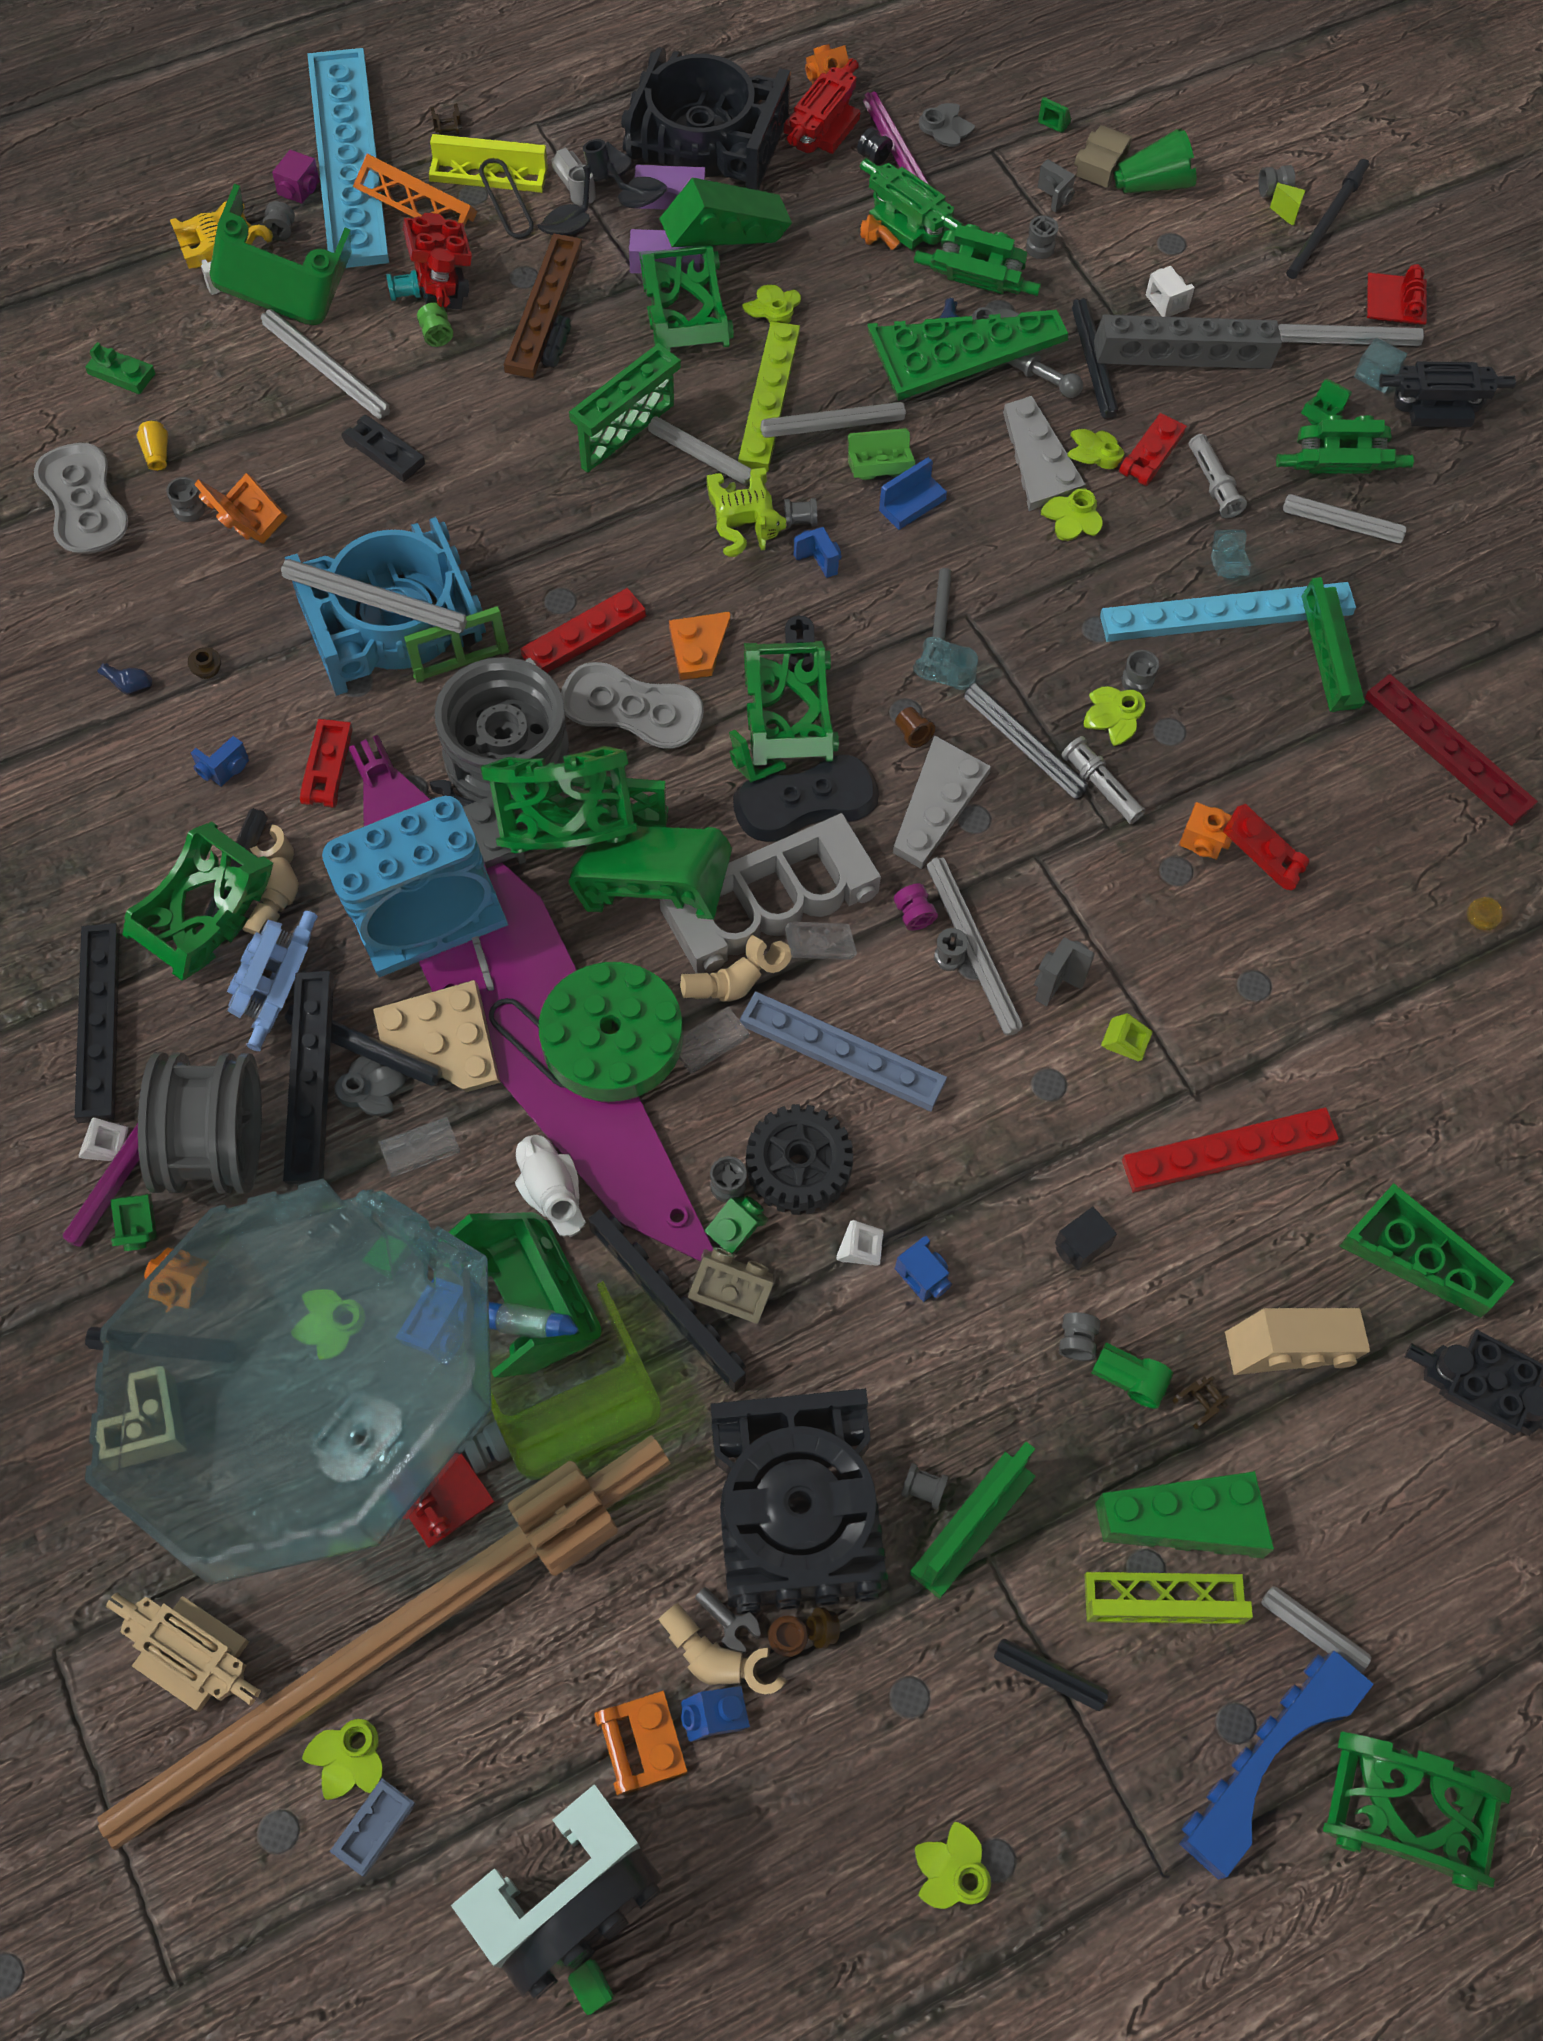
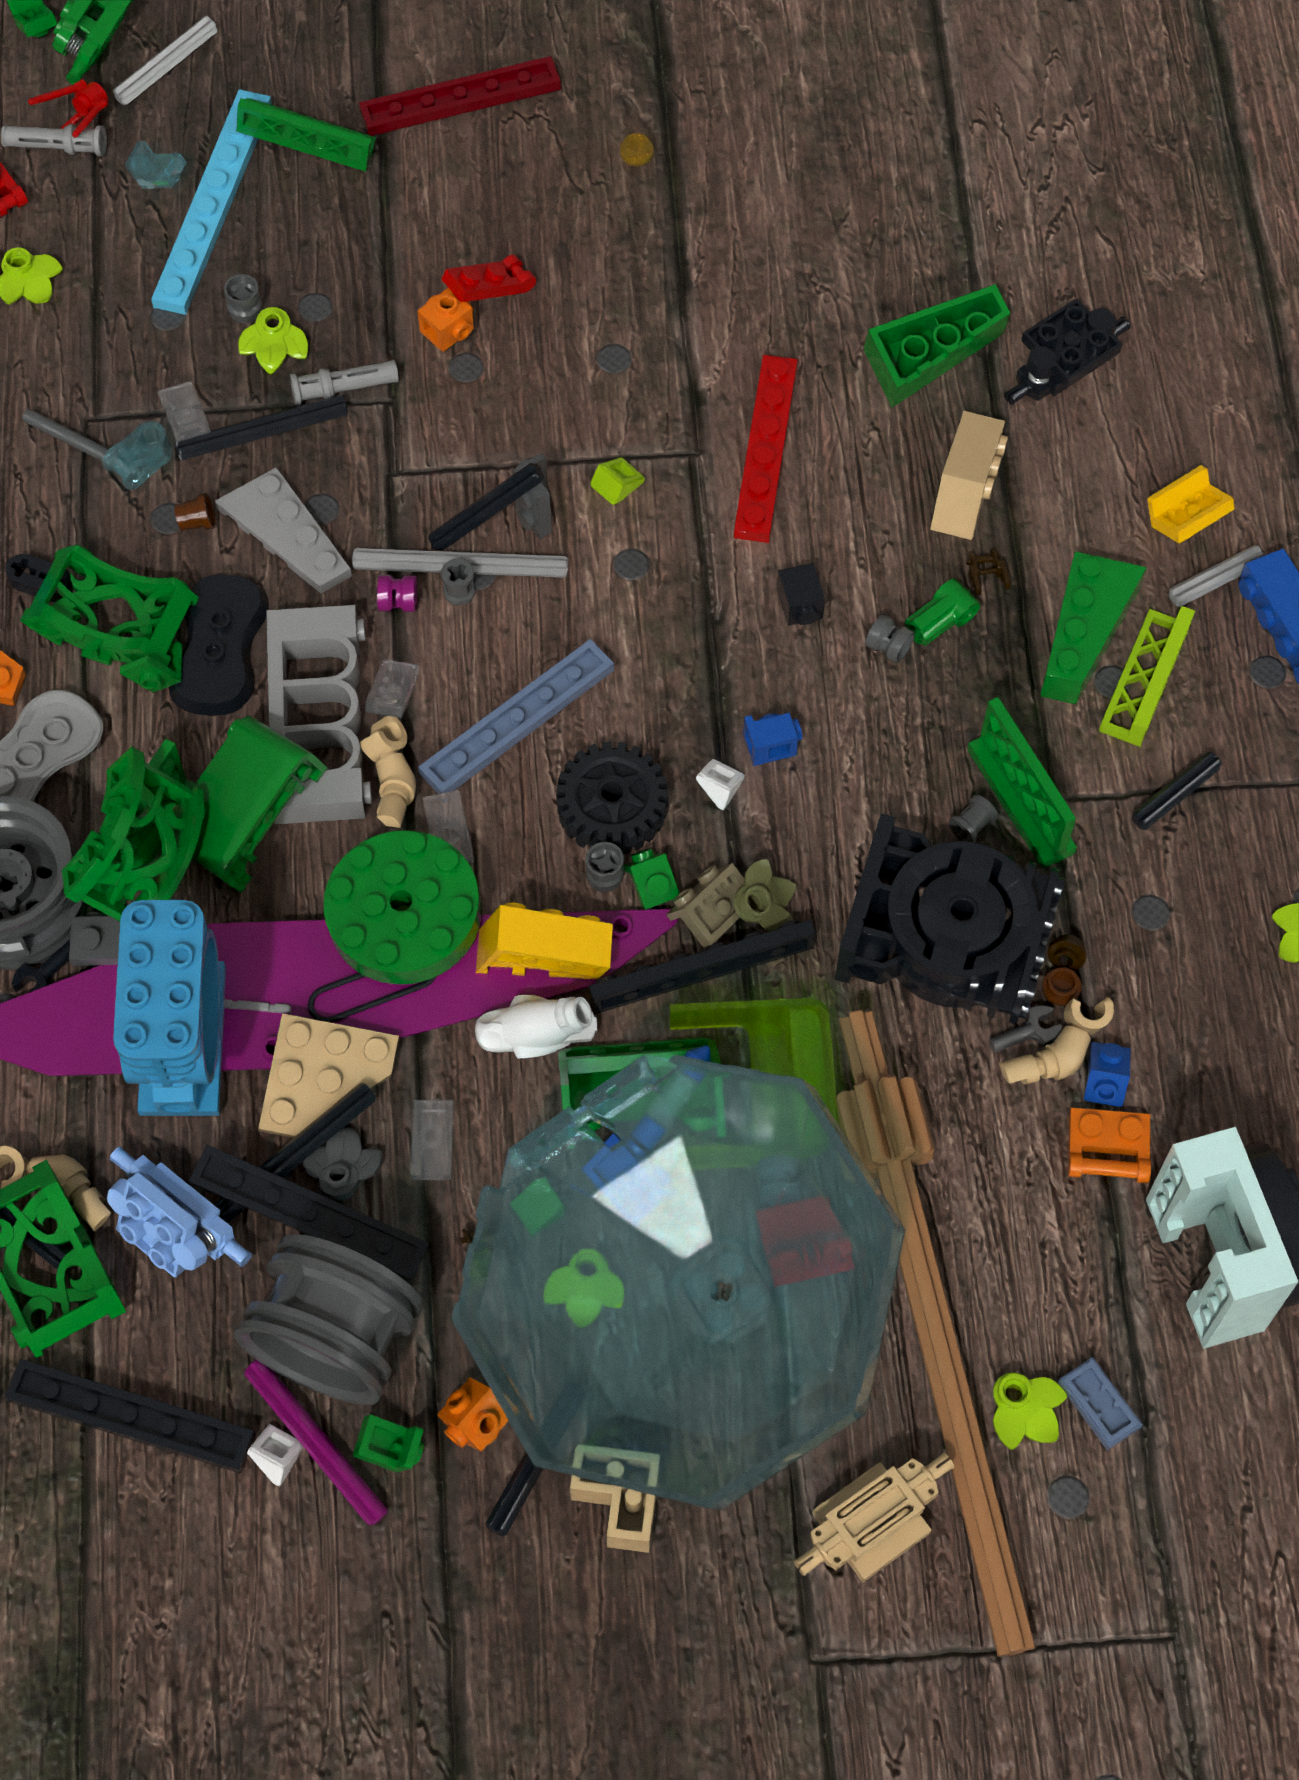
camera: 65 degrees left, 0 degrees up
(625, 1157) = (544, 941): none -> yellow wedge
(761, 1331) = (767, 895): none -> olive plate
(1006, 677) = (183, 411): none -> clear plate
(1025, 935) = (486, 506): none -> black axle
(1263, 480) = (88, 102): none -> red plant
(1378, 1570) = (1188, 505): none -> yellow bracket

